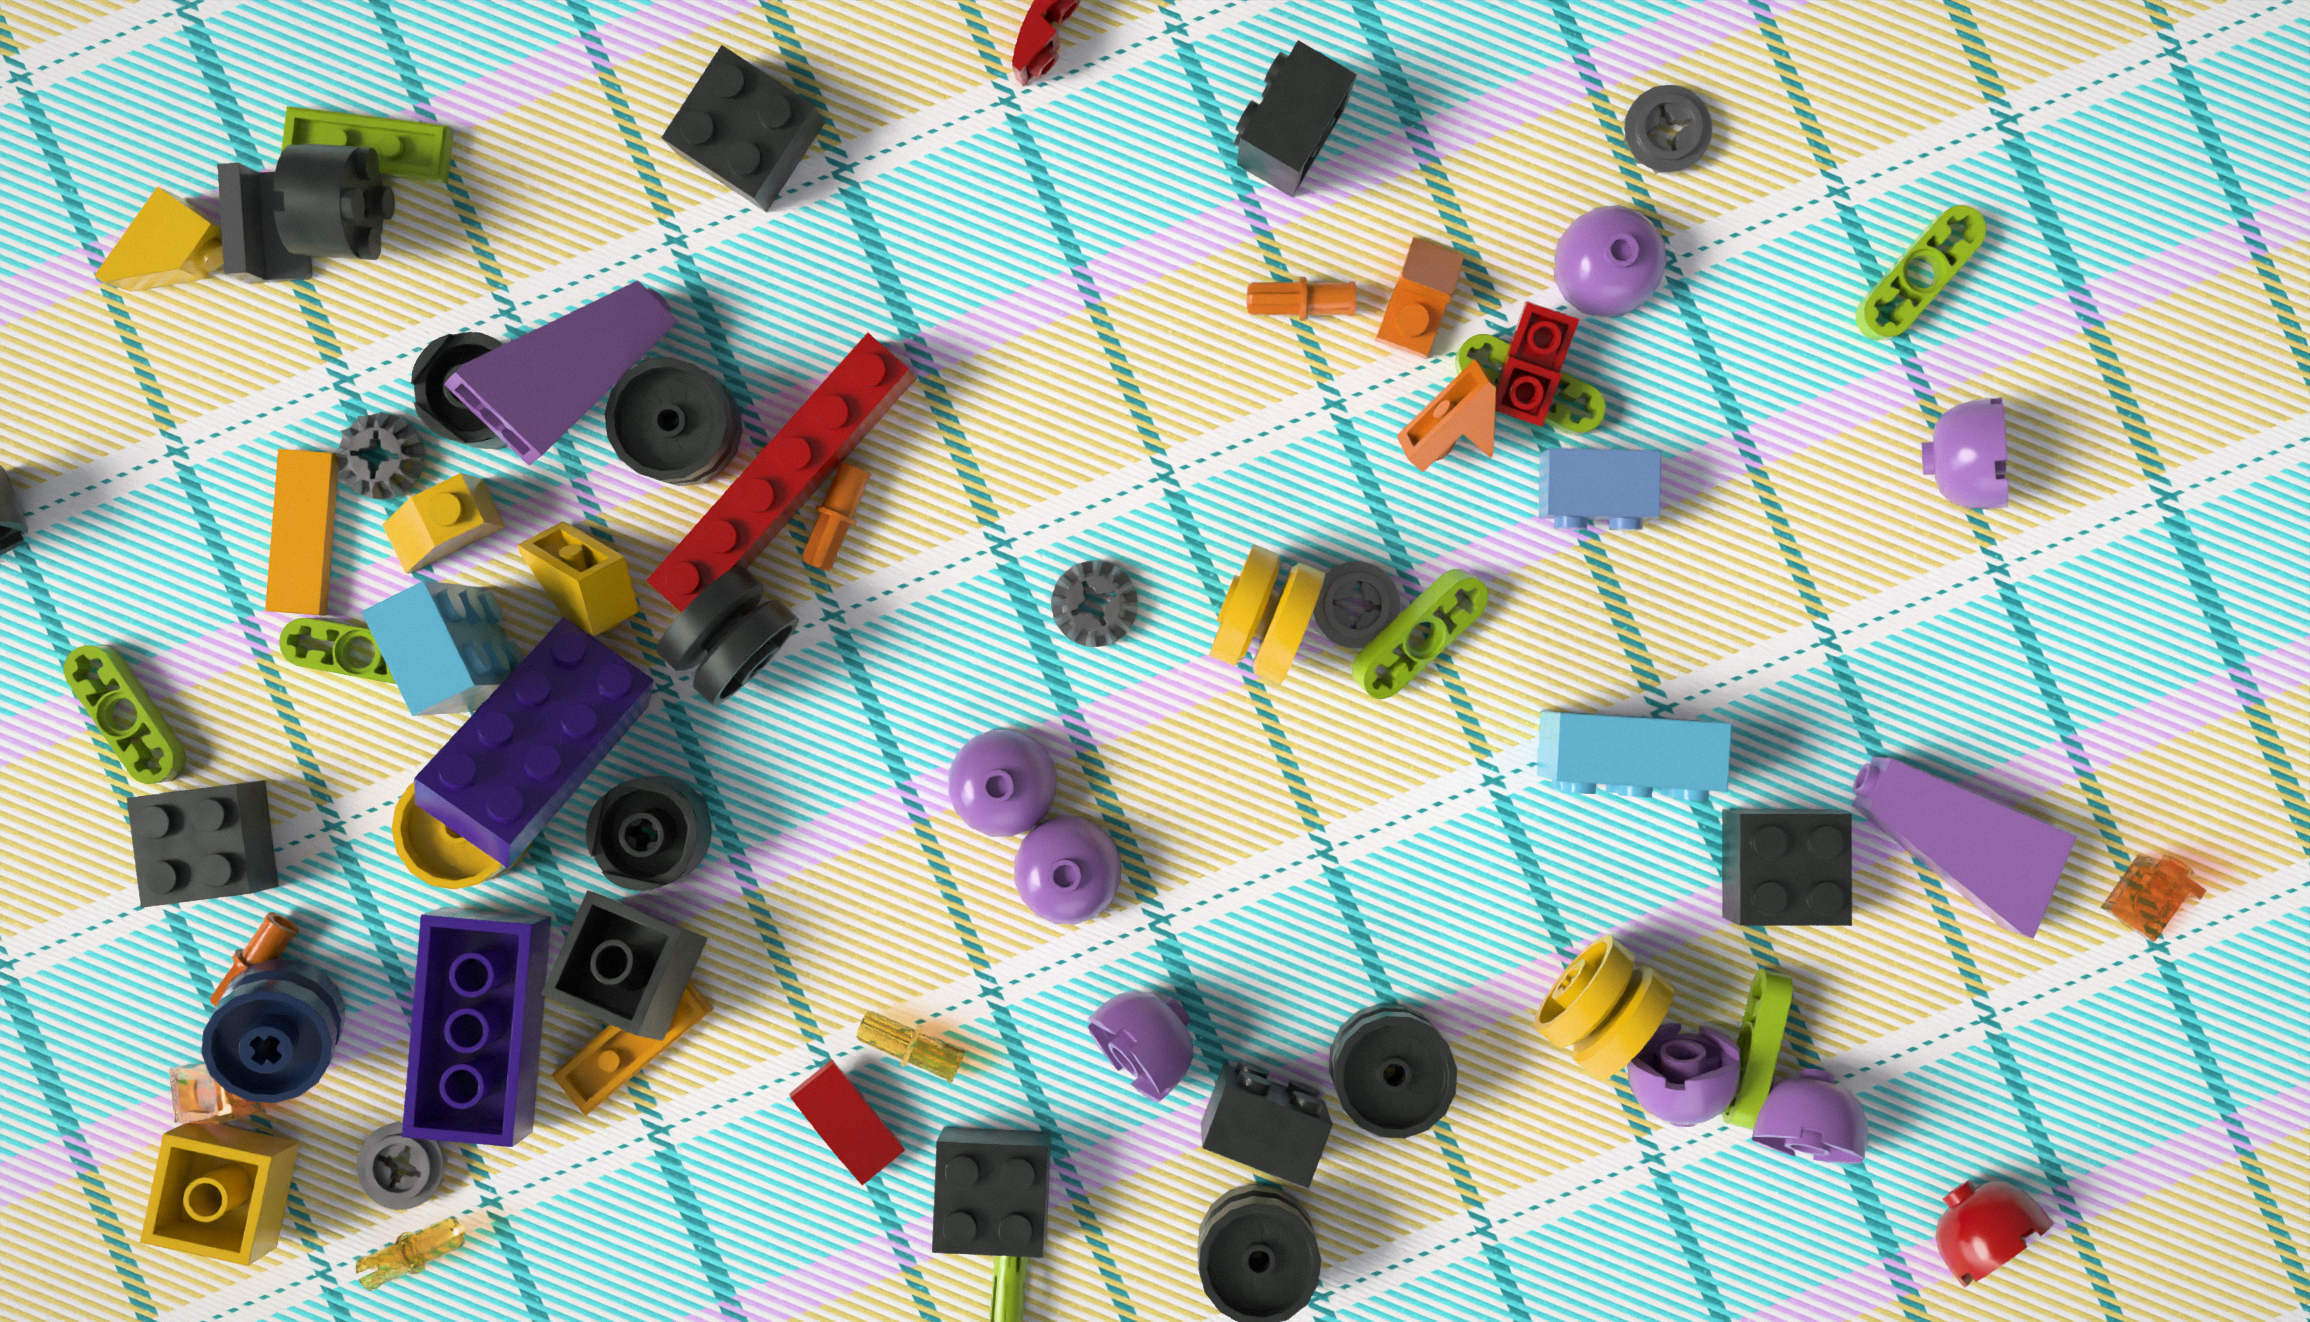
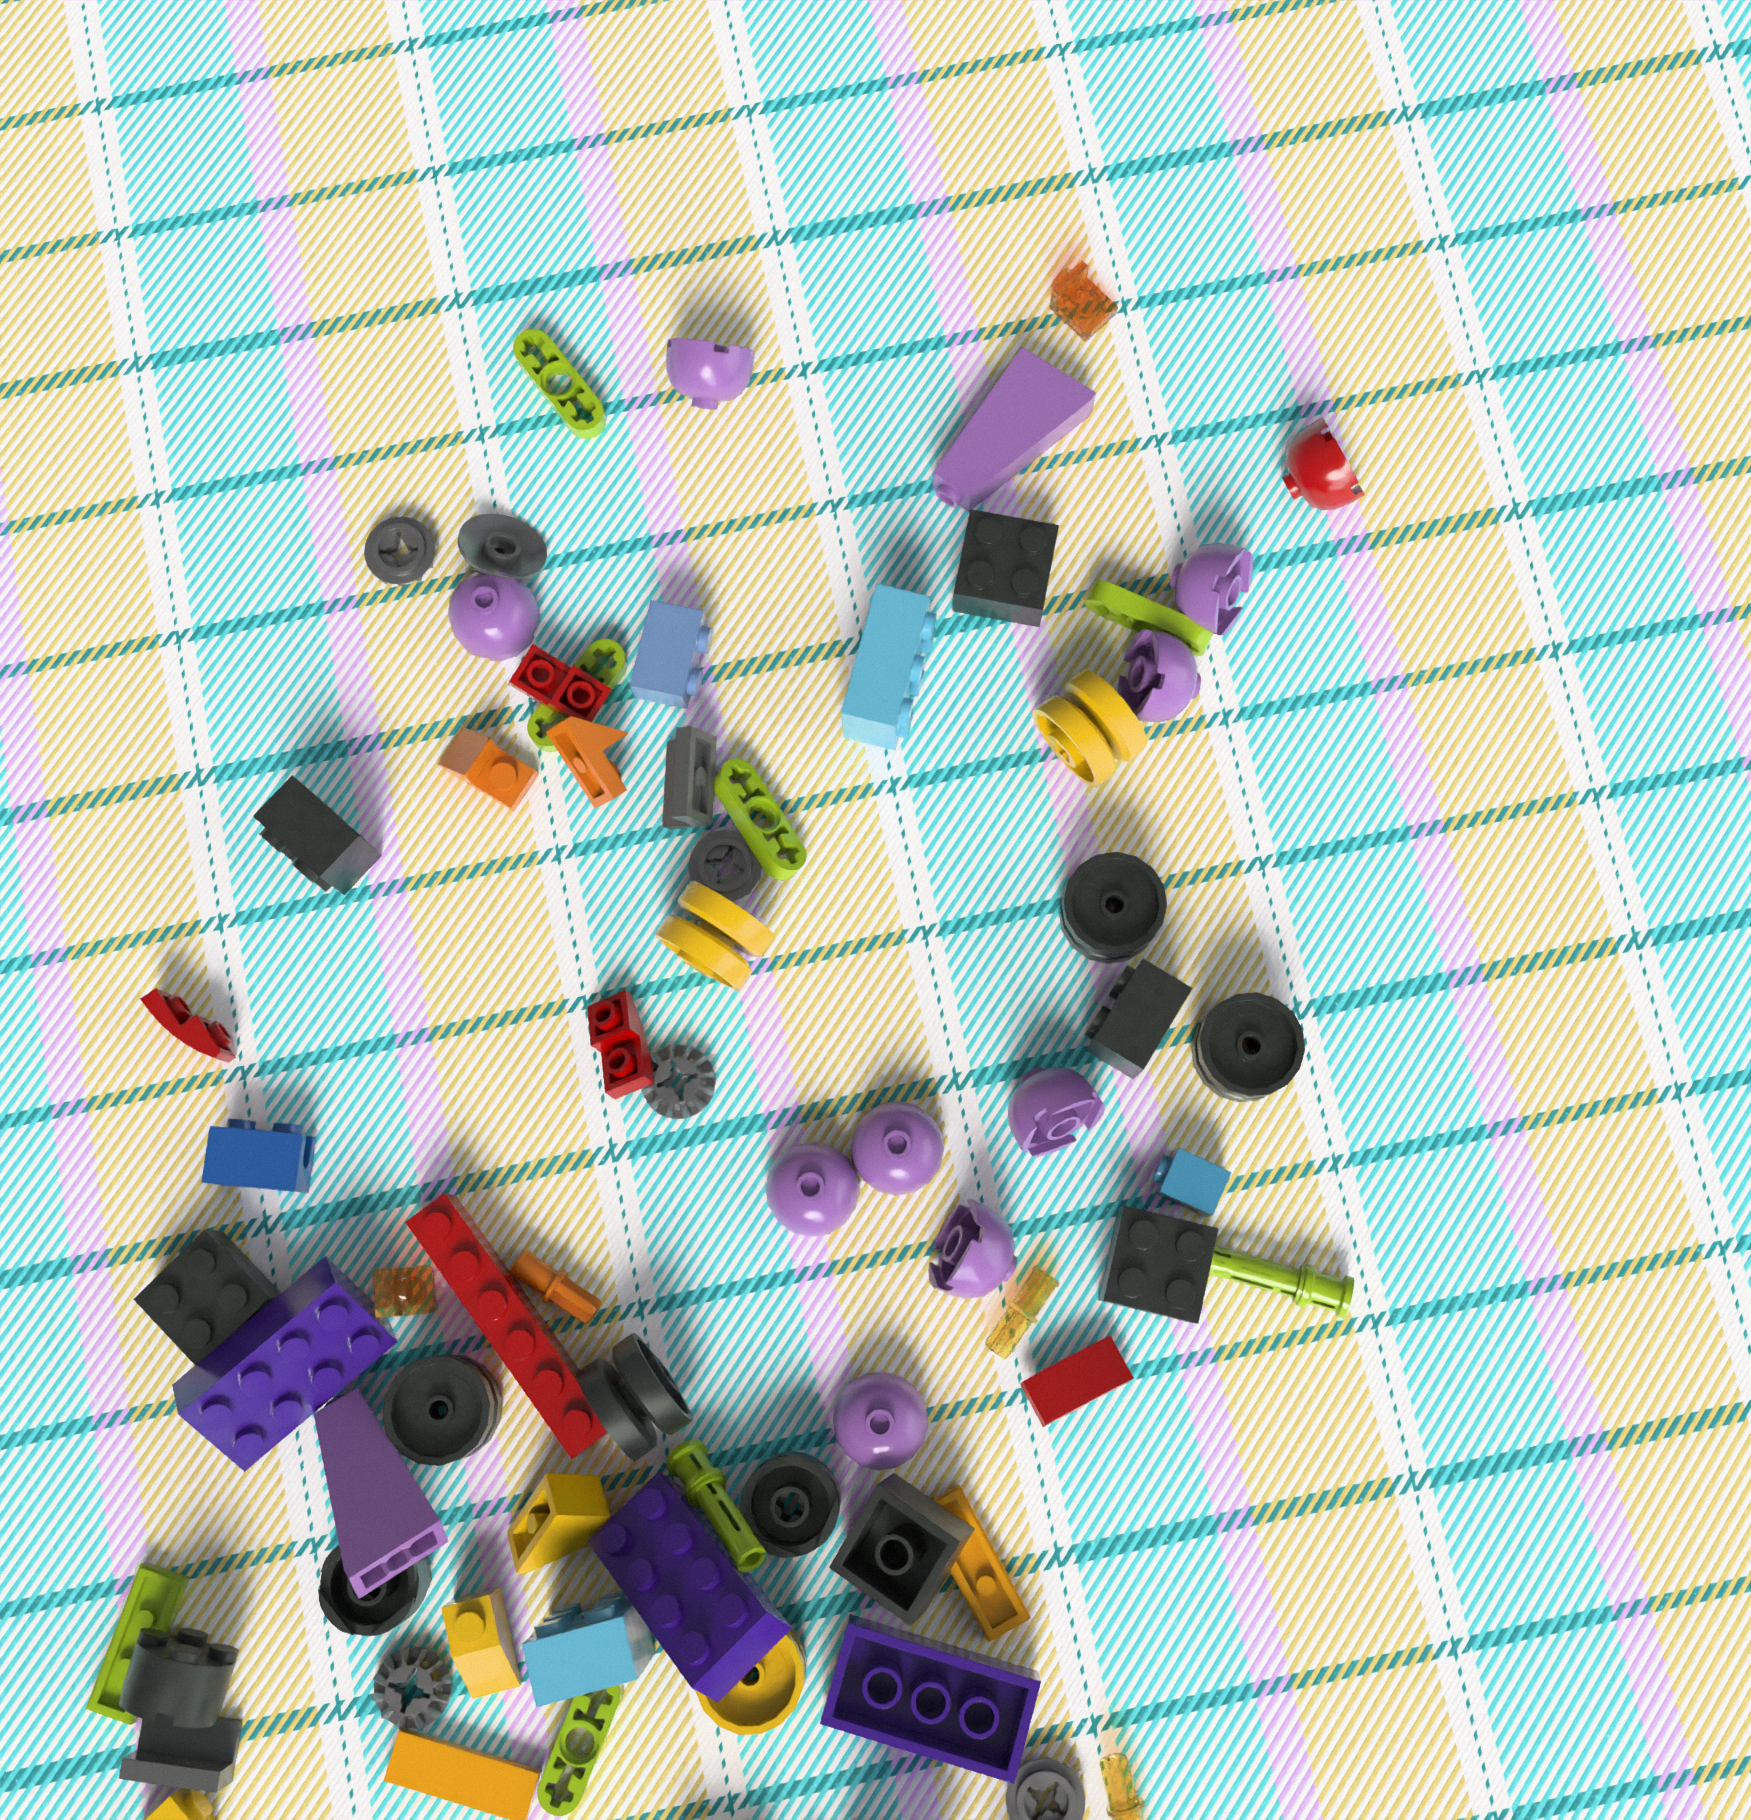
camera: 75 degrees left, 10 degrees down
(644, 736) = (707, 1490): none -> lime pin
(685, 233) = (283, 1364): none -> dark purple brick
(762, 910) = (880, 1421): none -> medium lavender cylinder
(795, 347) = (404, 1291): none -> clear orange bracket
(911, 144) = (259, 1158): none -> blue brick
(962, 981) = (975, 1252): none -> medium lavender cylinder
(1093, 1212) = (1190, 1181): none -> dark azure brick
(1125, 530) = (620, 1038): none -> red slope
(1301, 298) = (465, 862): orange axle -> none
(1450, 541) = (689, 779): none -> dark grey panel
(1698, 252) = (504, 544): none -> flat silver dish

